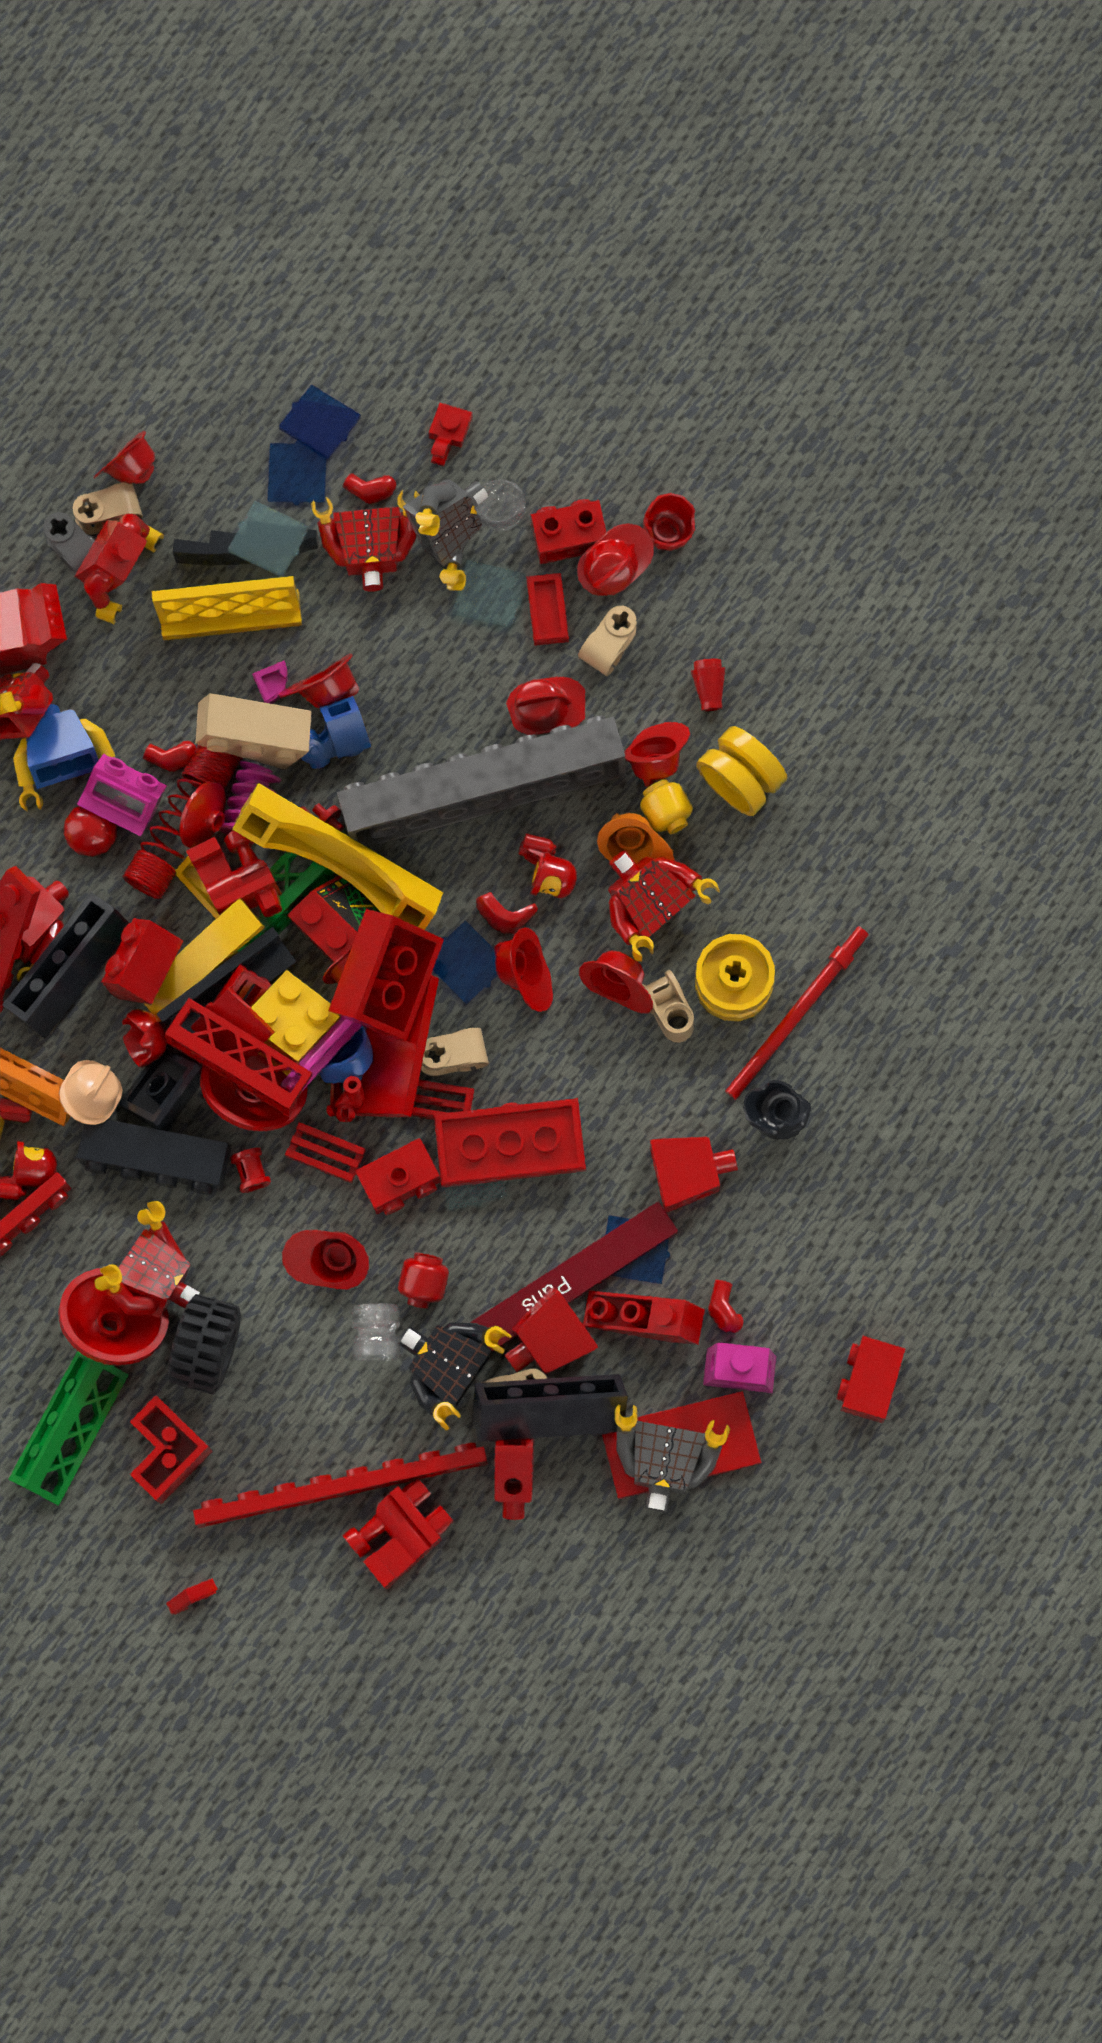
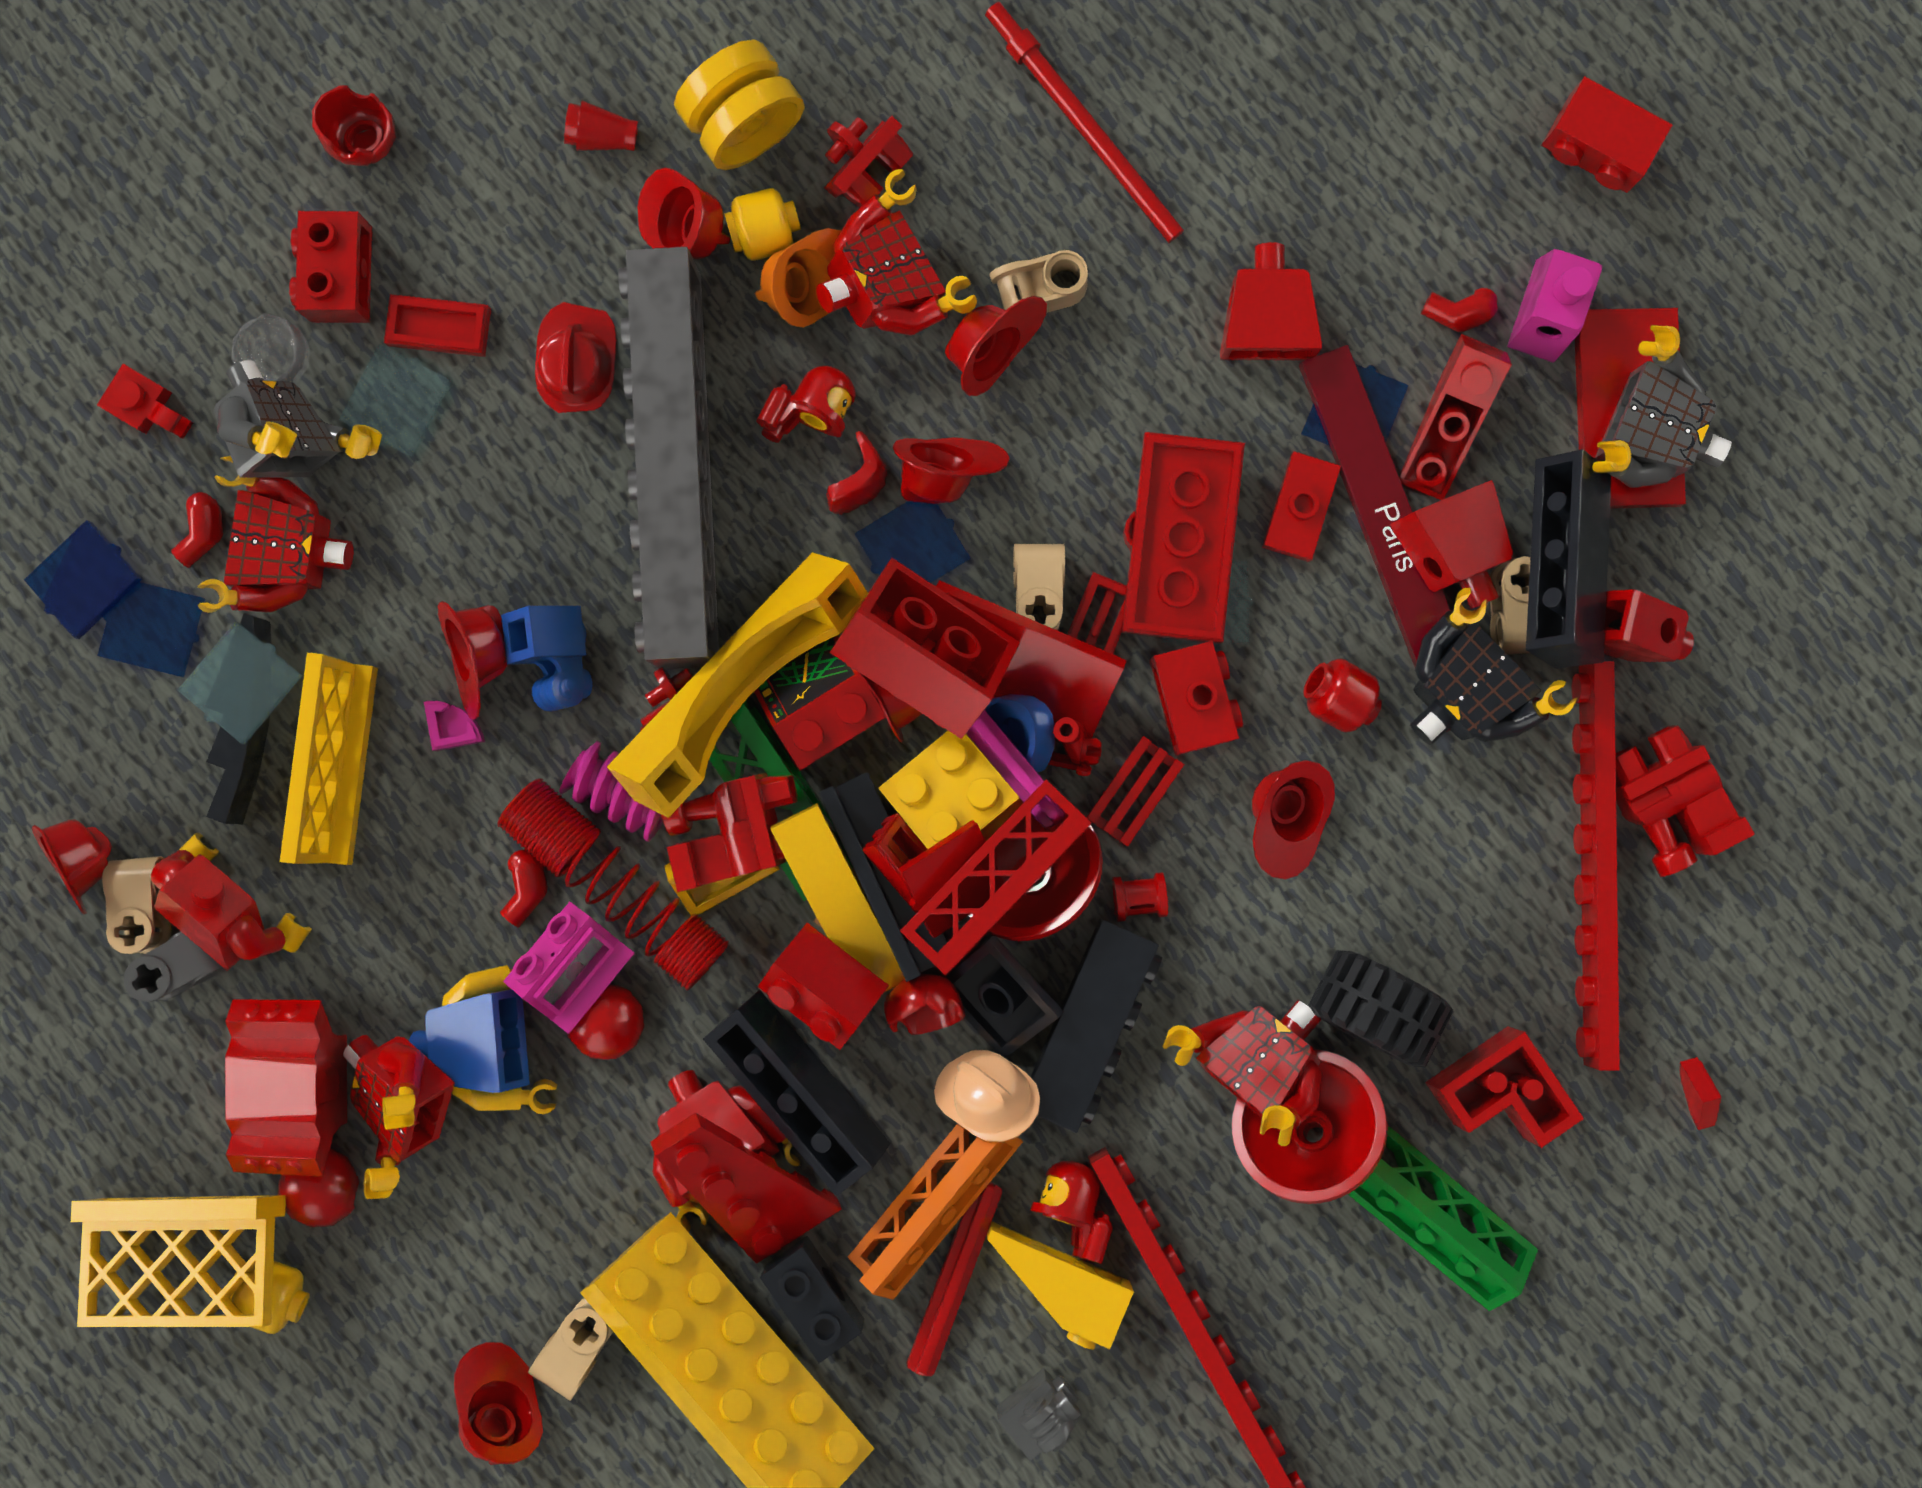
camera: 80 degrees left, 10 degrees up
(203, 814) = (627, 858): red dish -> none
(253, 729) = (521, 759): tan wedge -> none
(376, 1332) = (1411, 774): clear wheel -> none
(554, 1225) = (1301, 506): none -> red plate
(606, 644) = (508, 249): tan piece -> none
(615, 560) = (391, 212): red piece -> none
(739, 957) = (1027, 158): yellow wheel -> none
(744, 875) = (882, 144): none -> red hips
(776, 1110) = (1219, 171): black hair -> none

